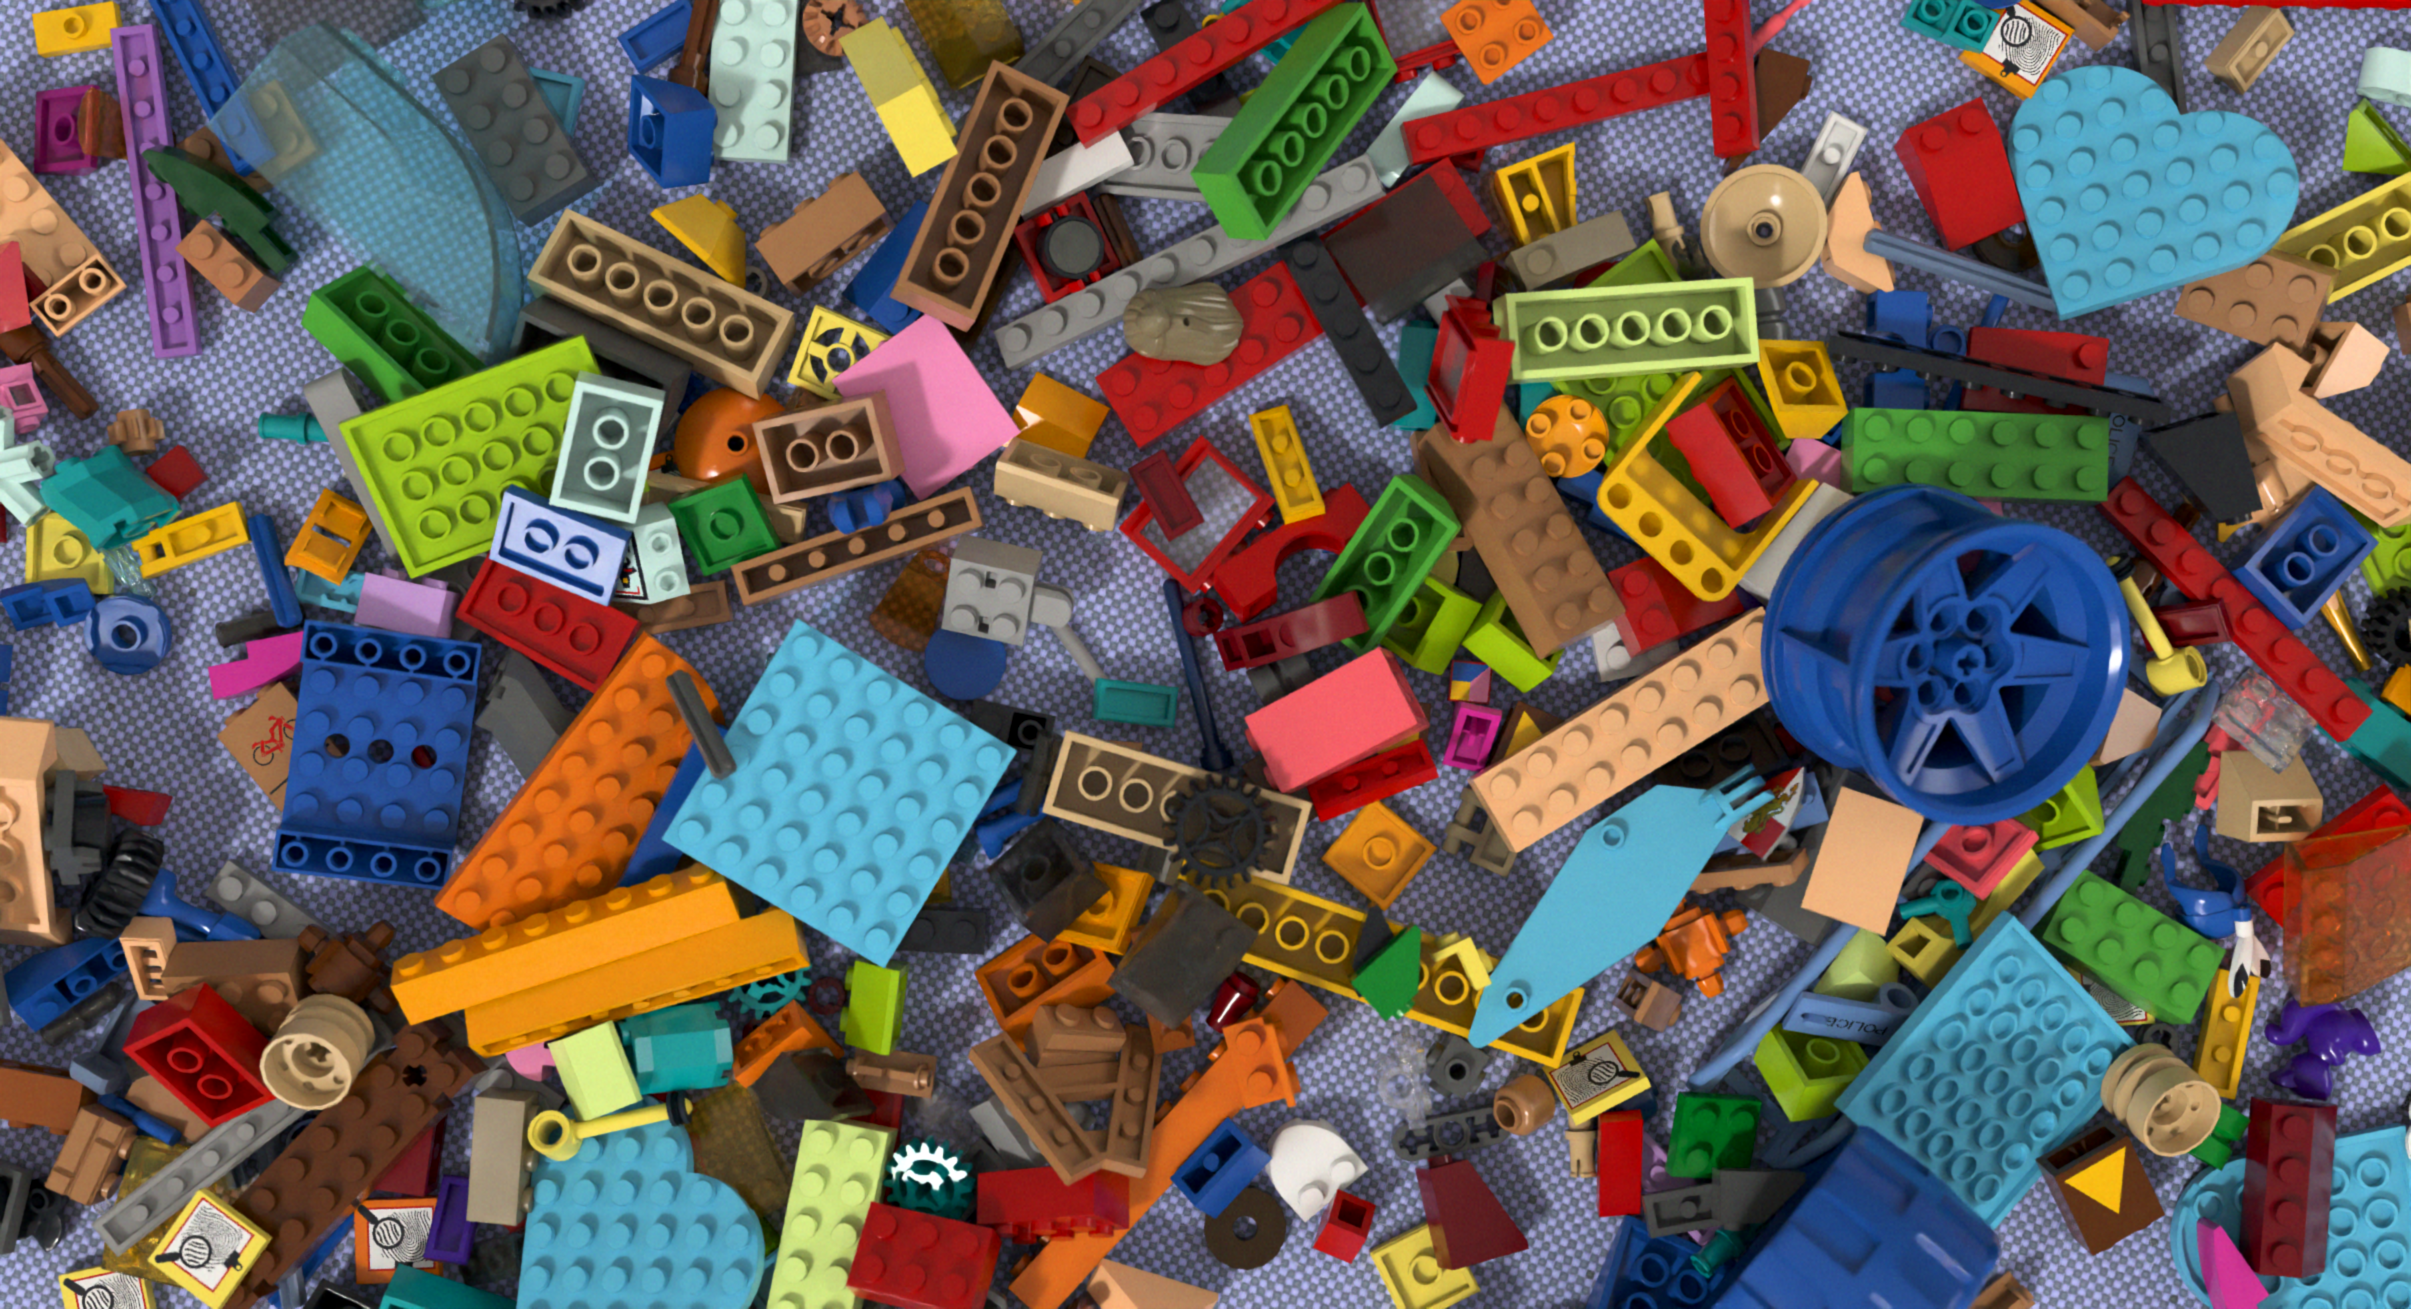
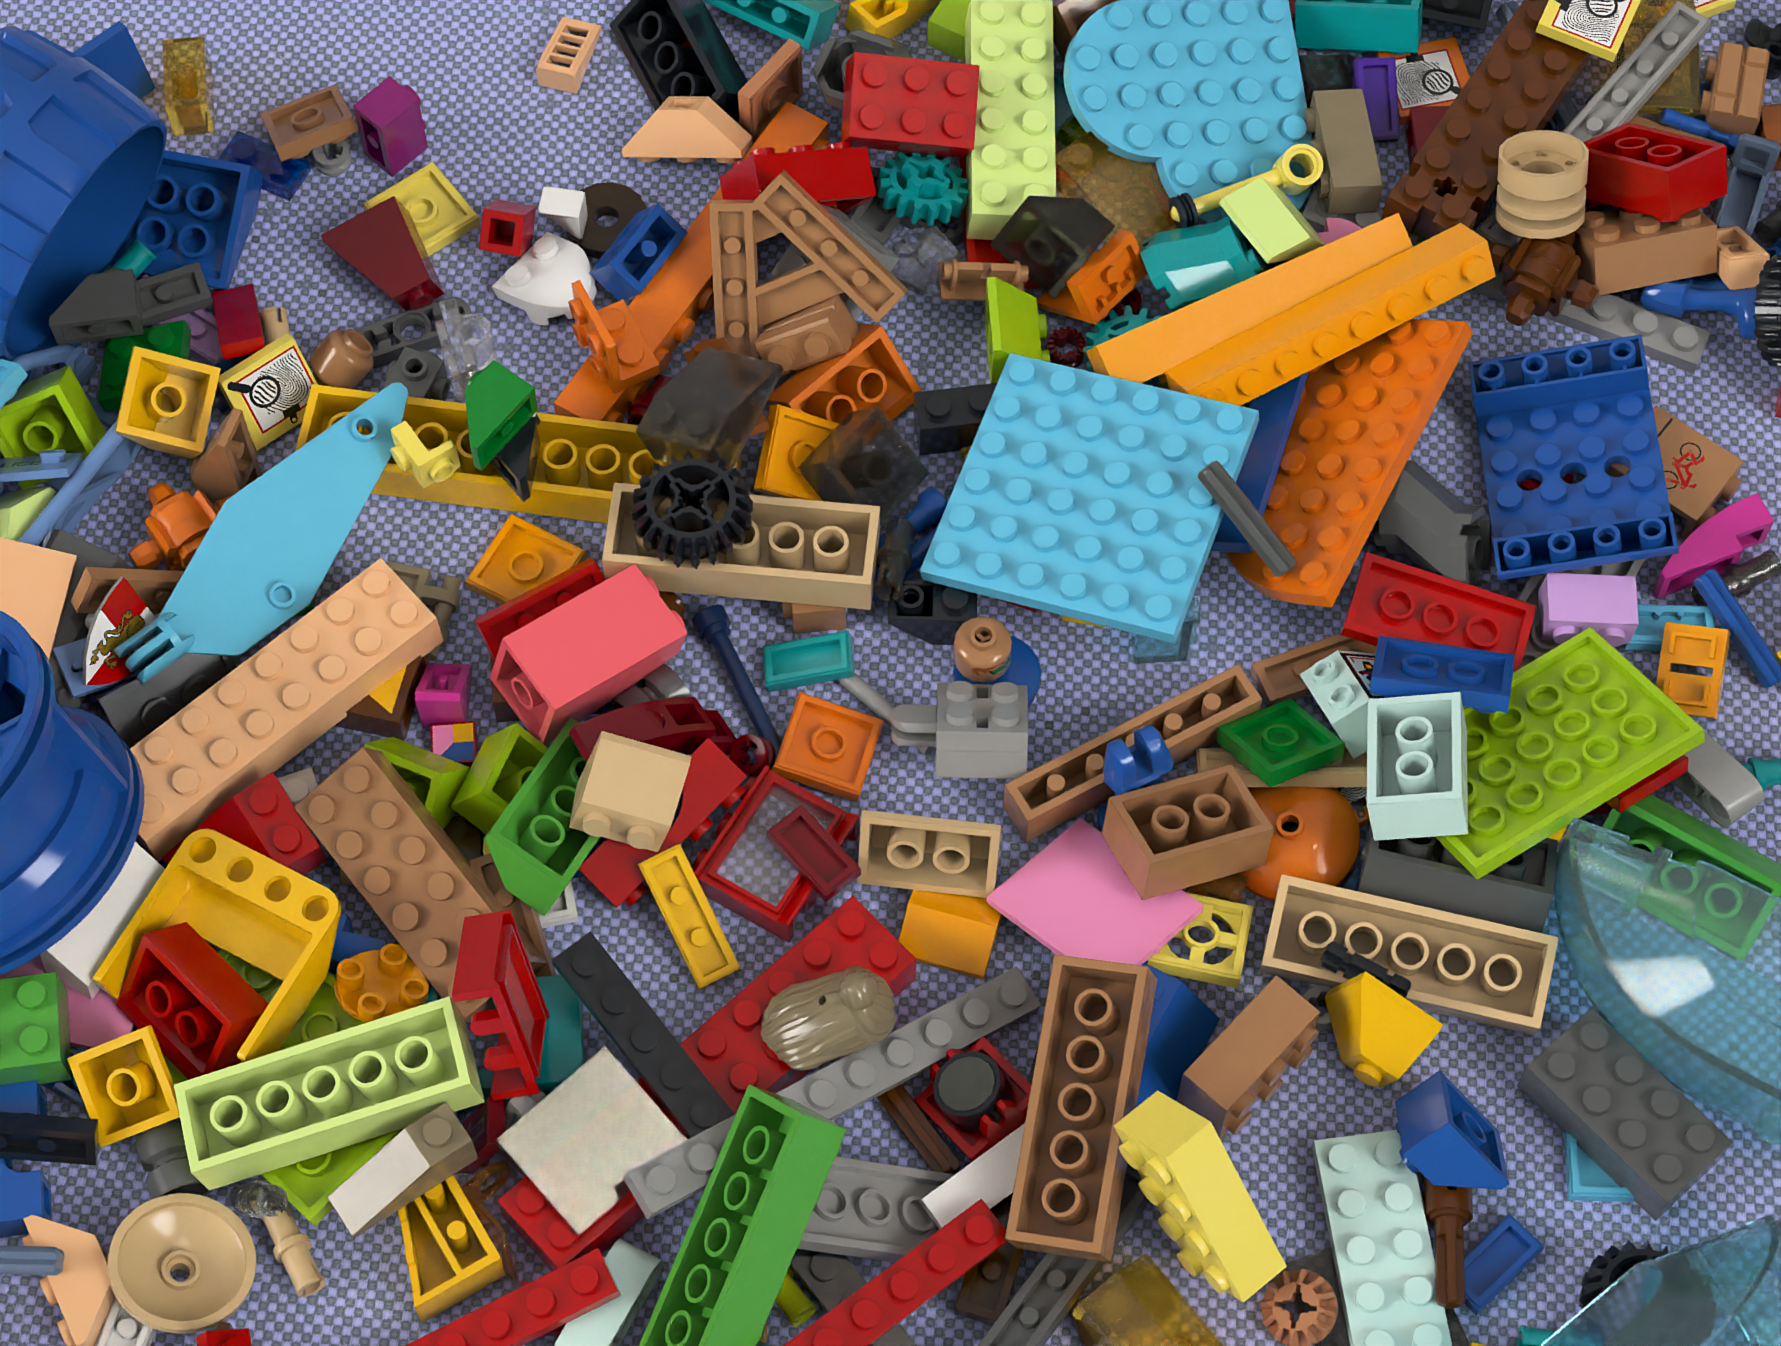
camera: 170 degrees right, 25 degrees down
(705, 279) = (1336, 958): none -> black axle
(913, 603) = (1064, 715): clear orange piece -> none
(985, 682) = (982, 649): none -> medium nougat head
(1133, 613) = (828, 746): none -> orange tile
(1286, 1233) = (565, 208): none -> white slope
(1325, 553) = (629, 791): none -> tan slope
(1699, 1062) = (167, 402): none -> yellow slope

